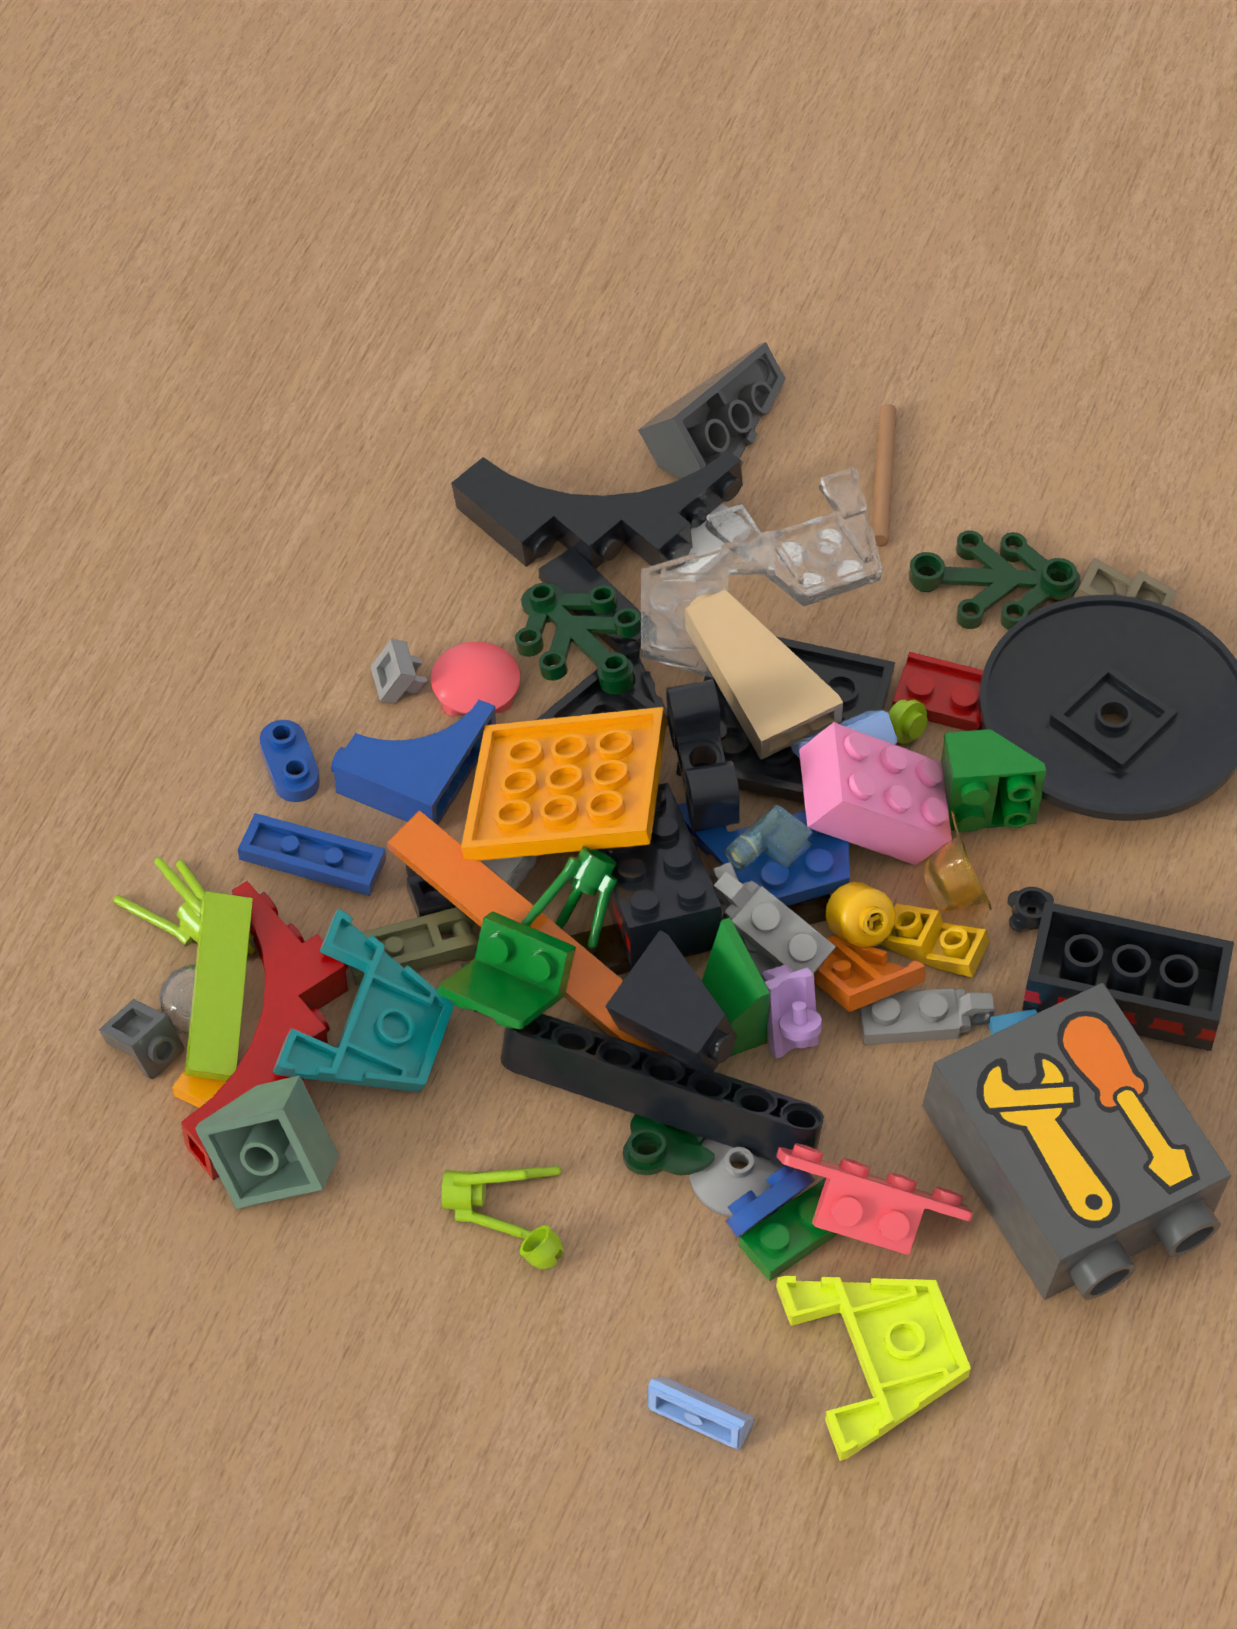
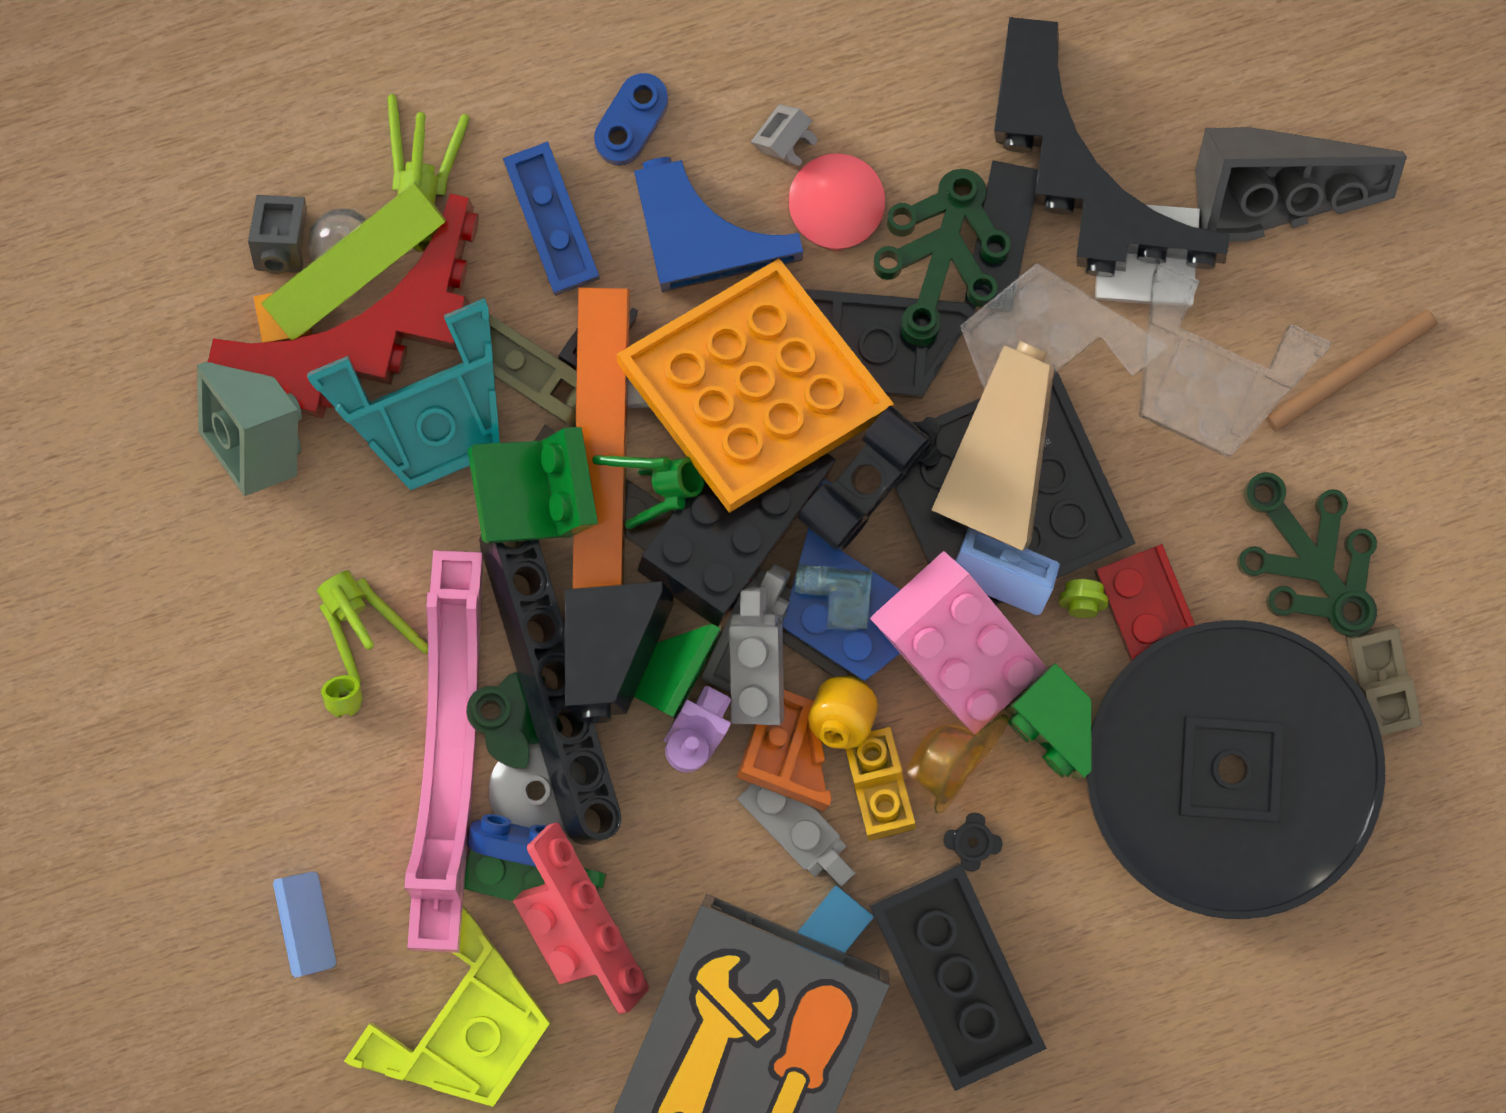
camera: 55 degrees right, 30 degrees up
(716, 1248) = (444, 817): none -> bright pink slope

